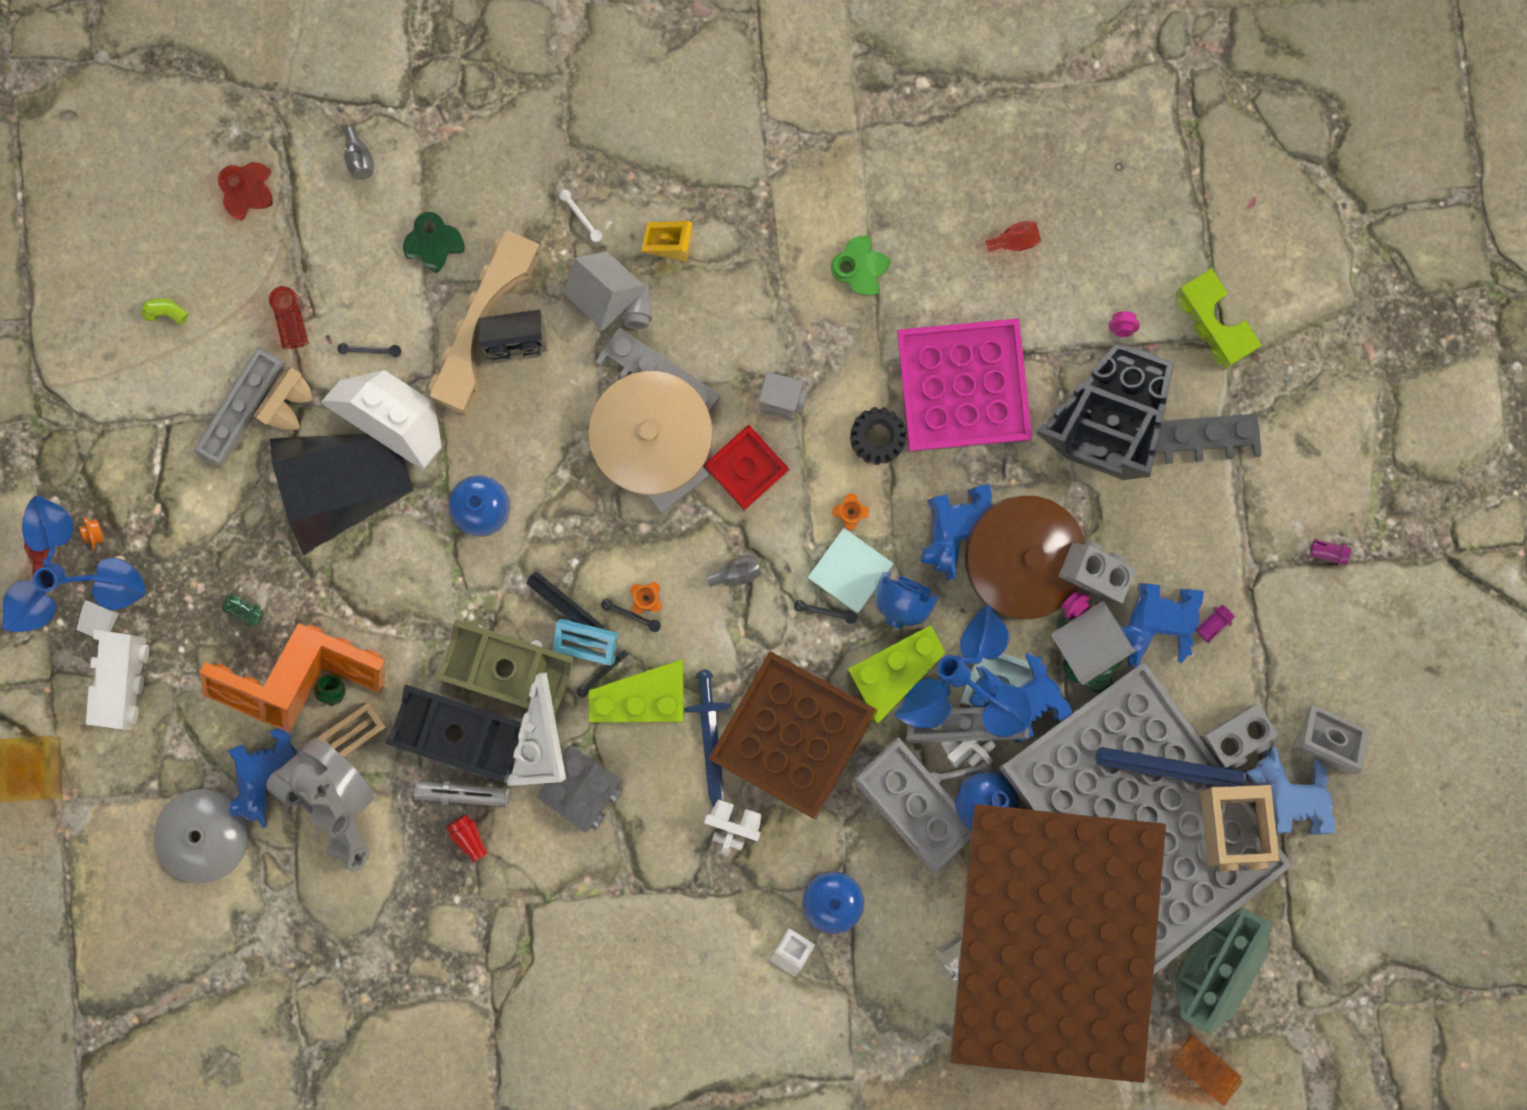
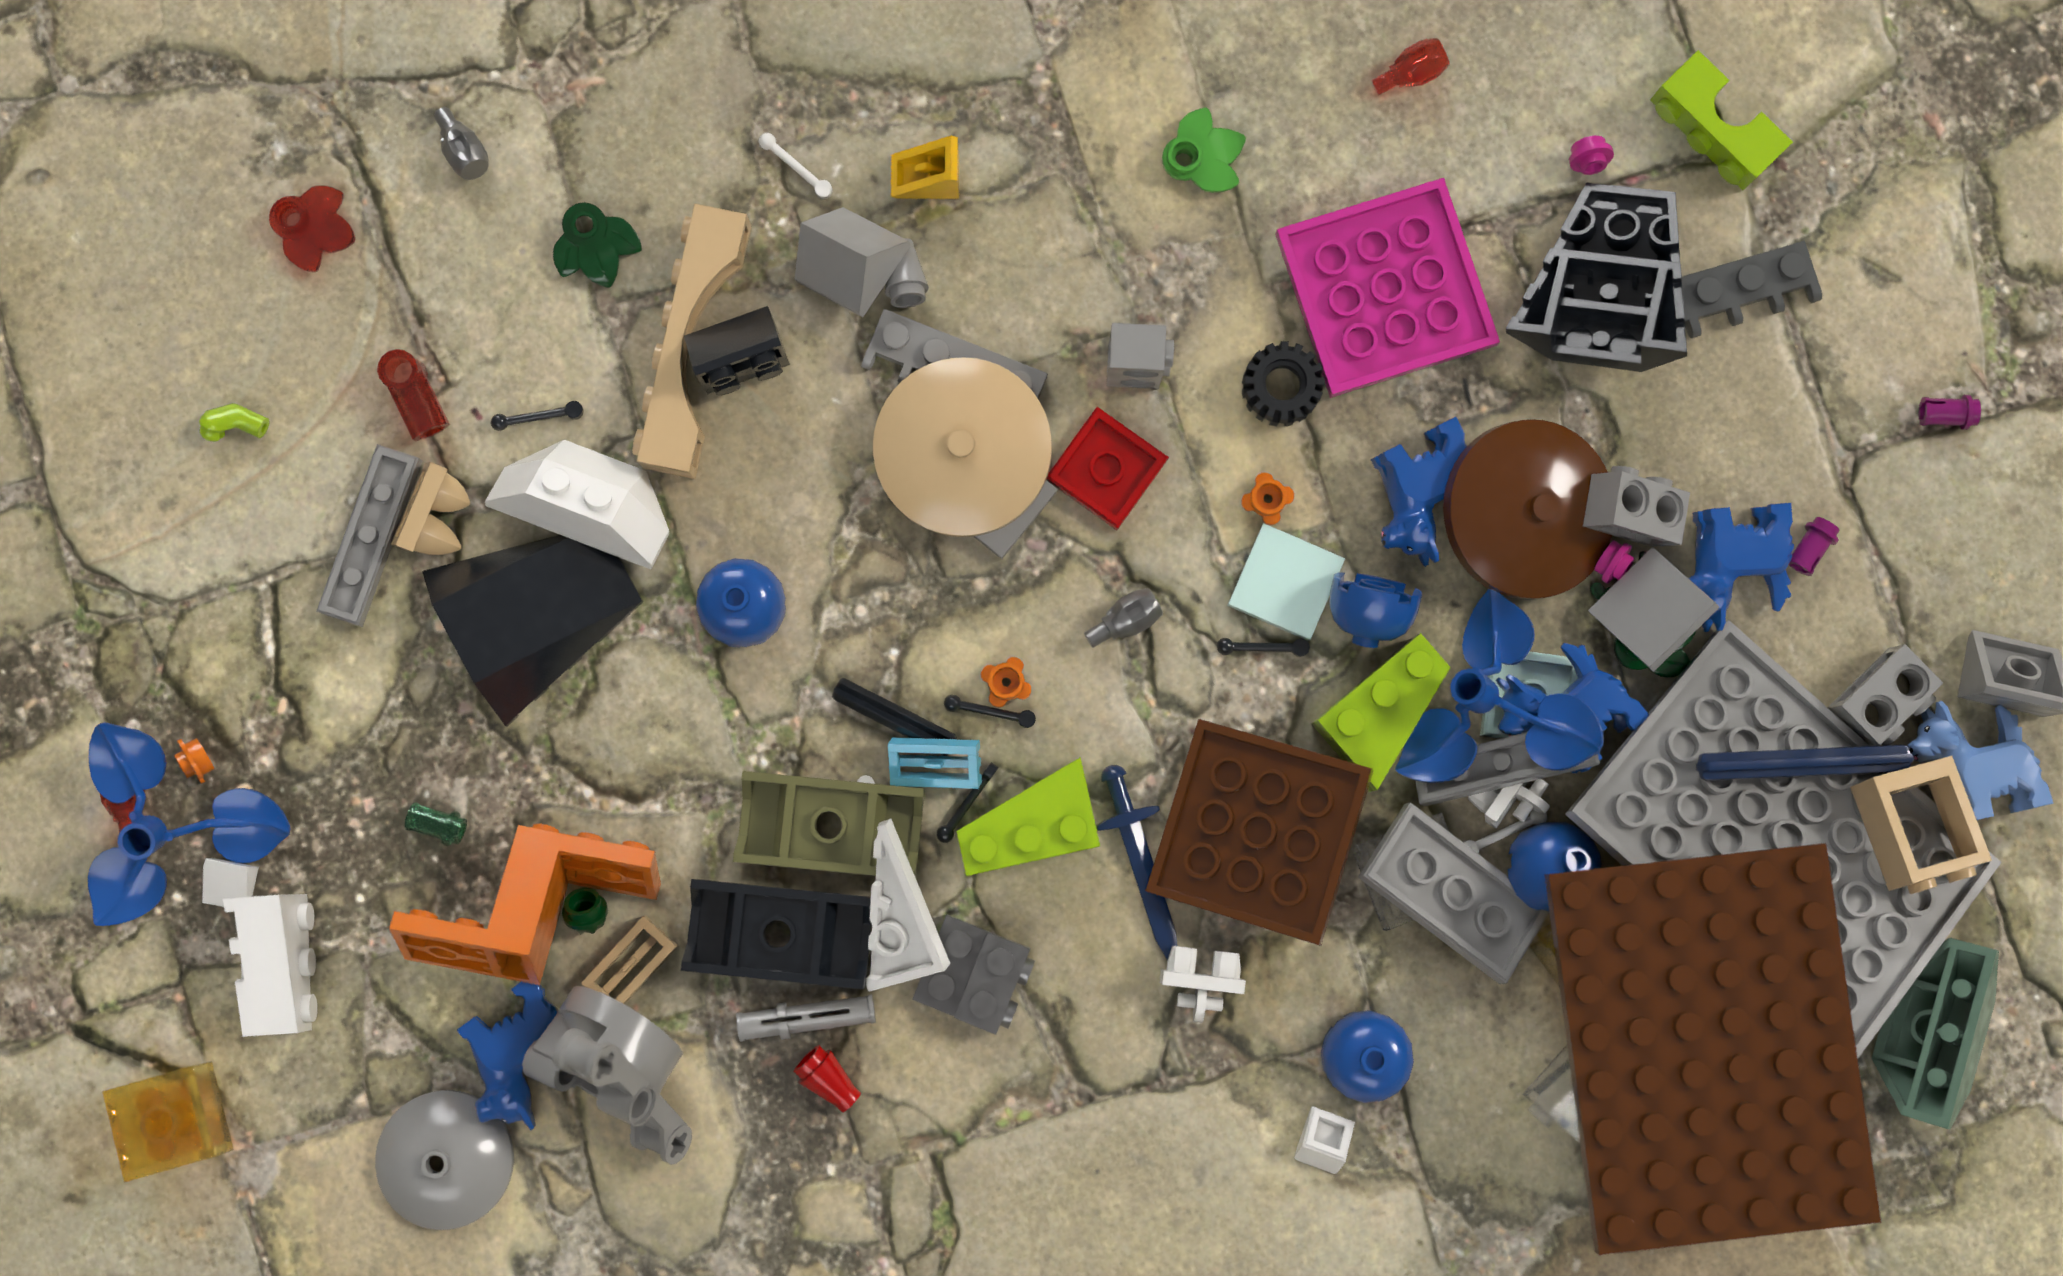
camera: 15 degrees left, 0 degrees up
(1207, 1070) = (1948, 1179): clear orange hinge -> none

